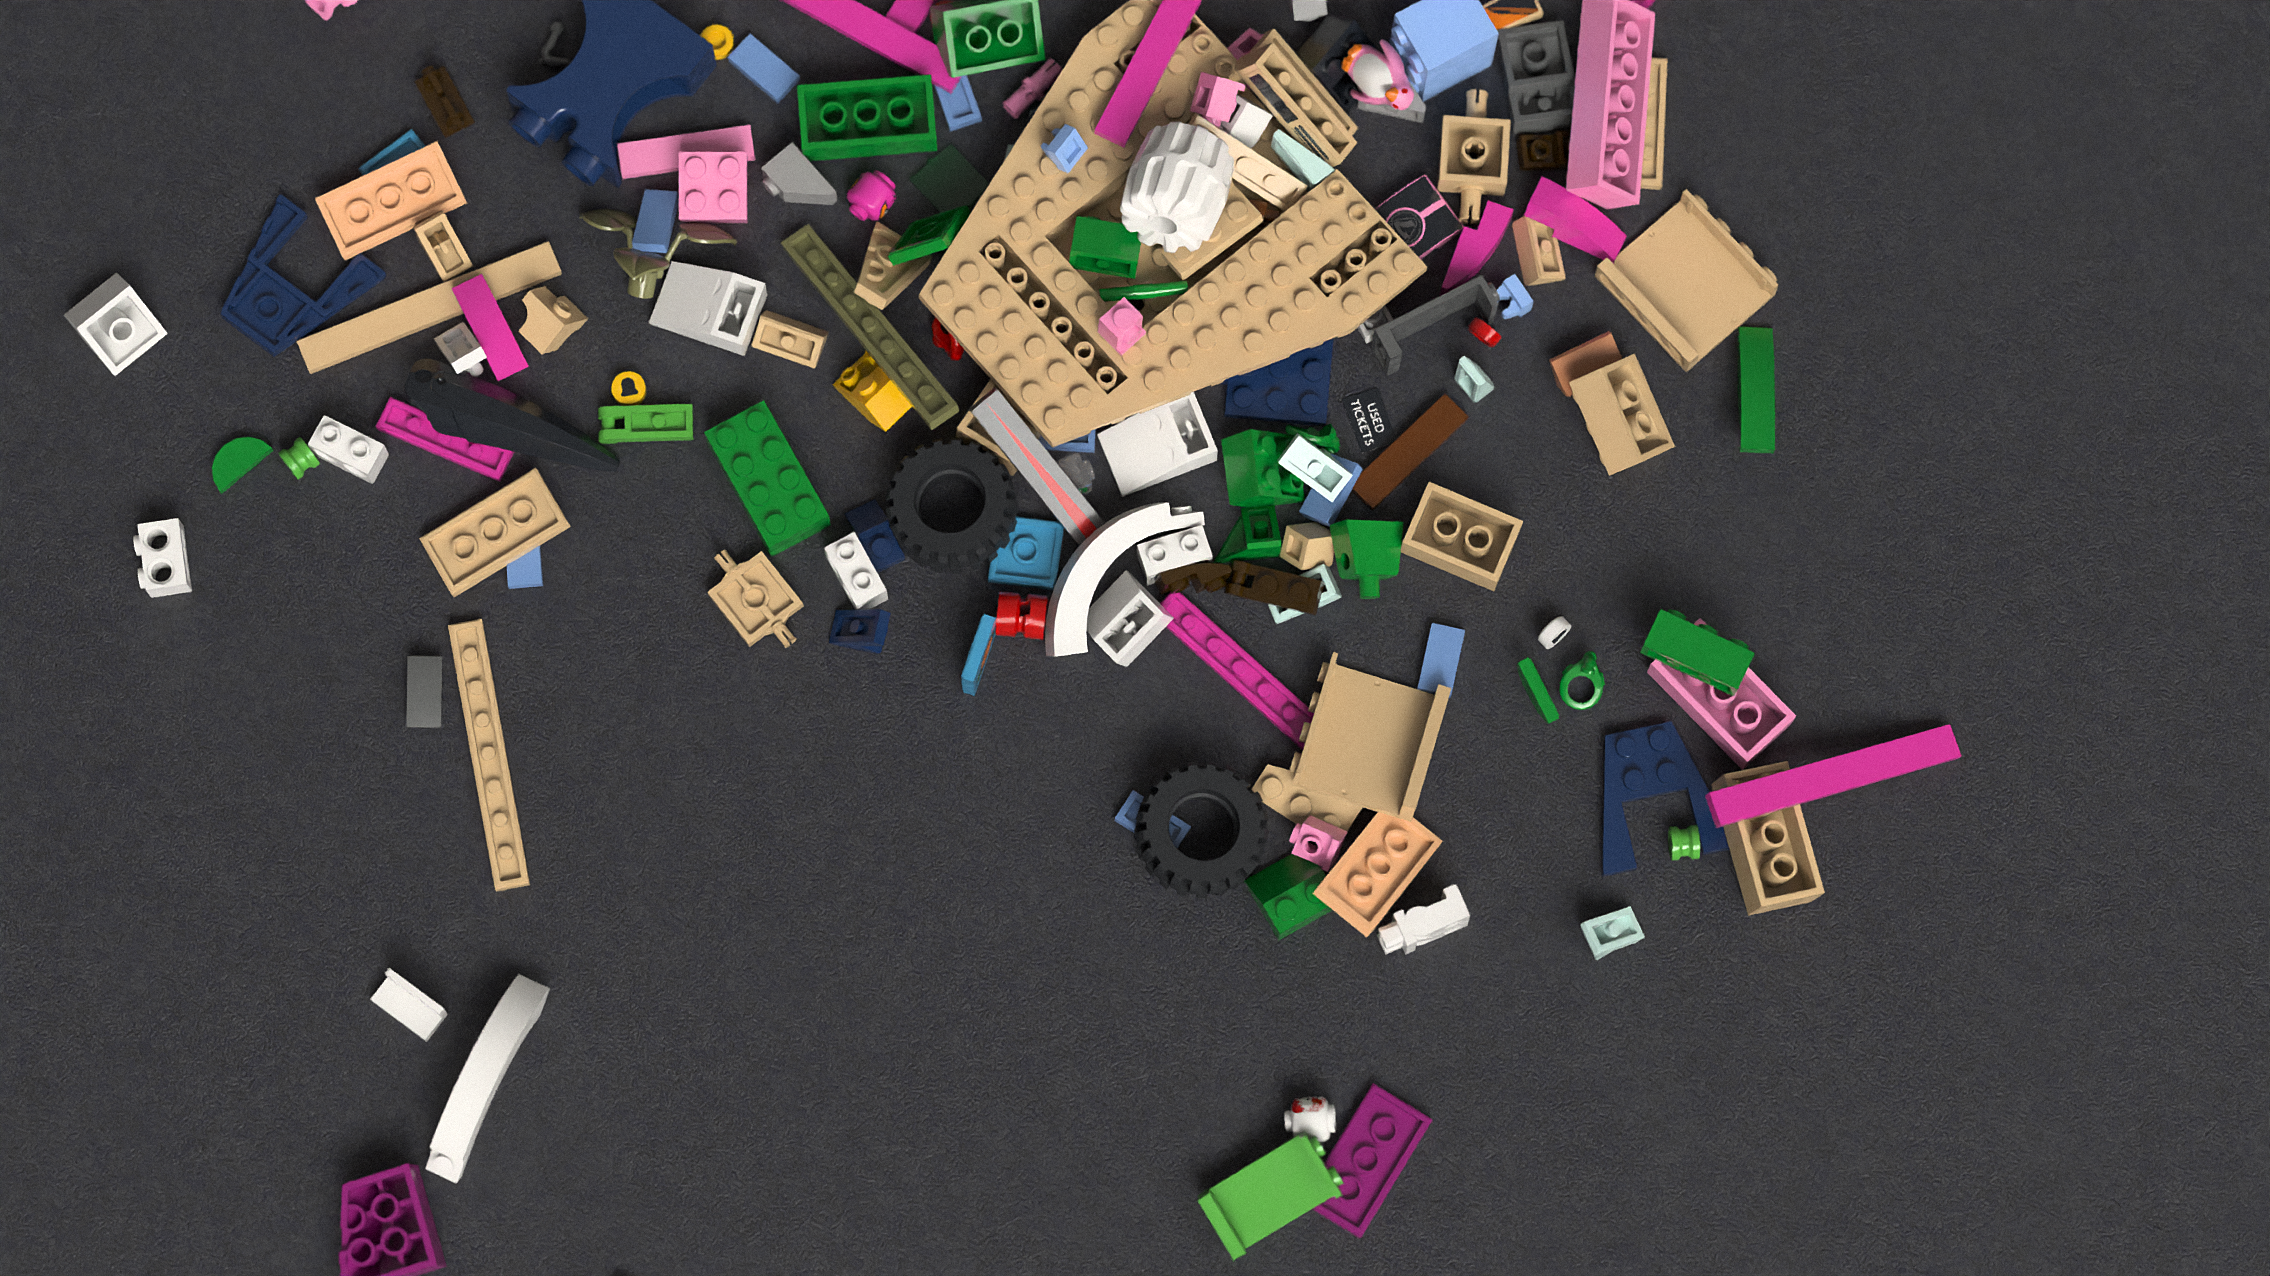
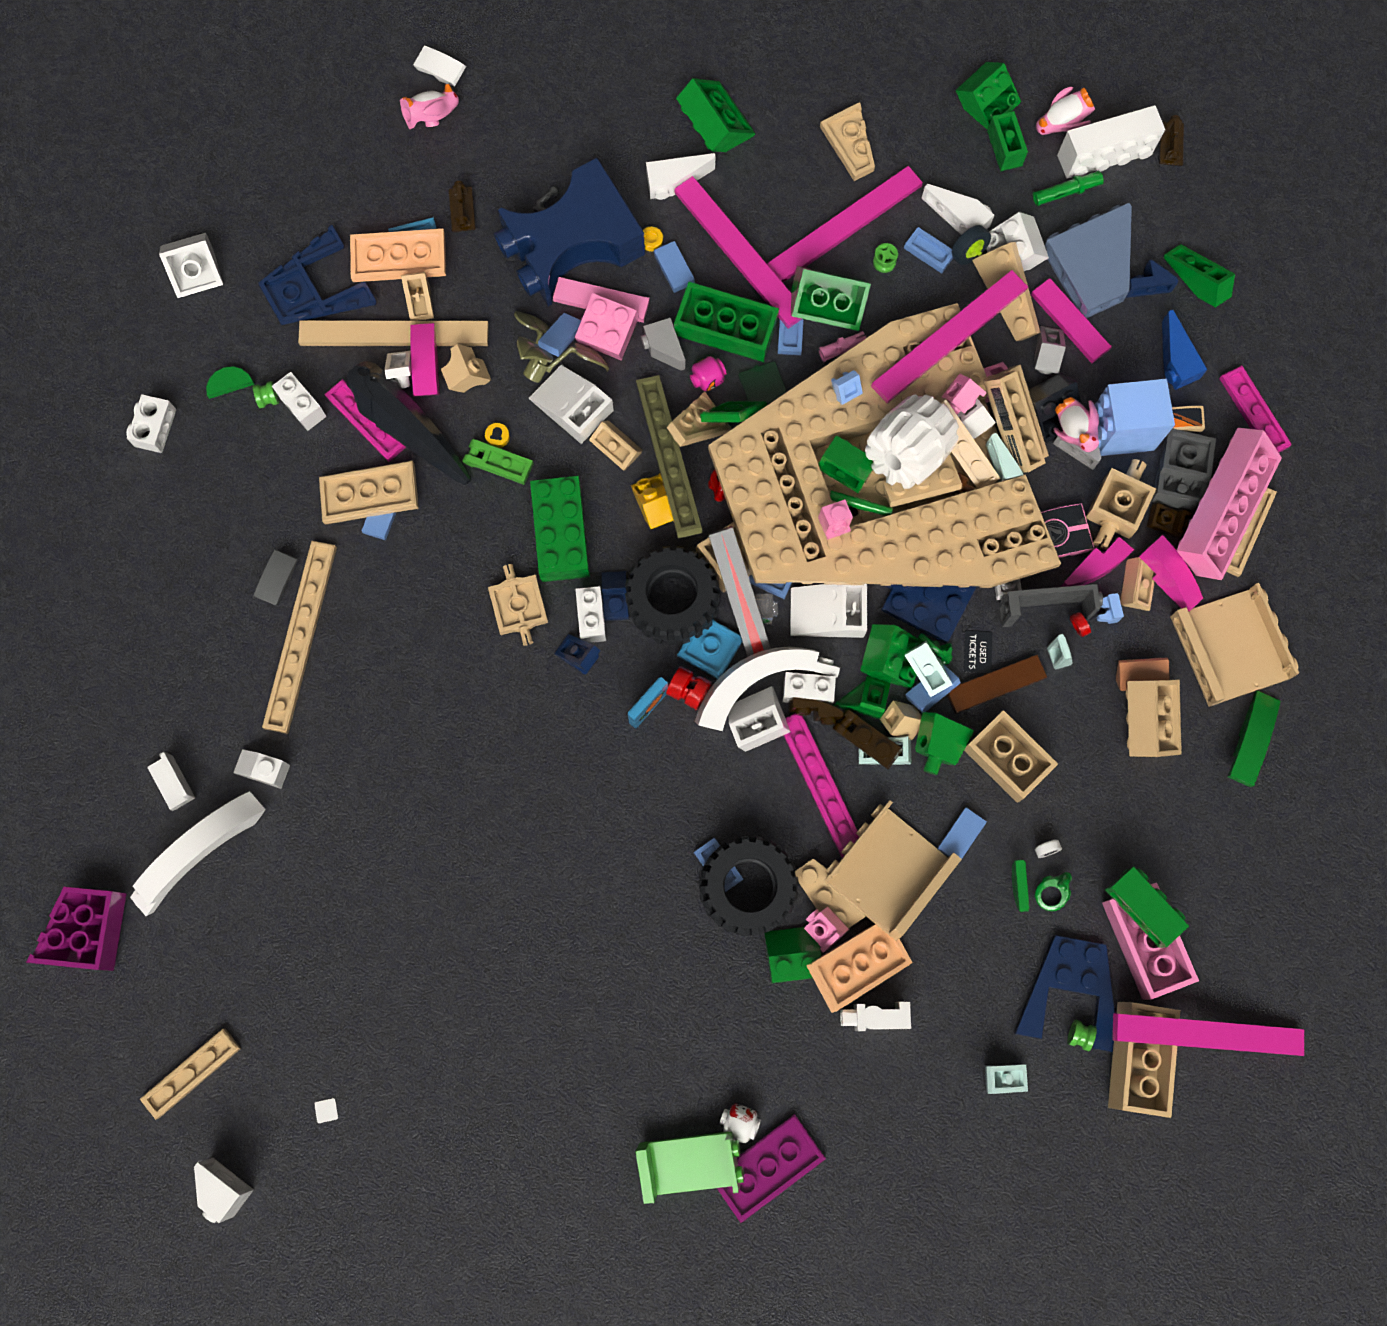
camera: 25 degrees right, 0 degrees up
(517, 940) = (262, 768): none -> white slope

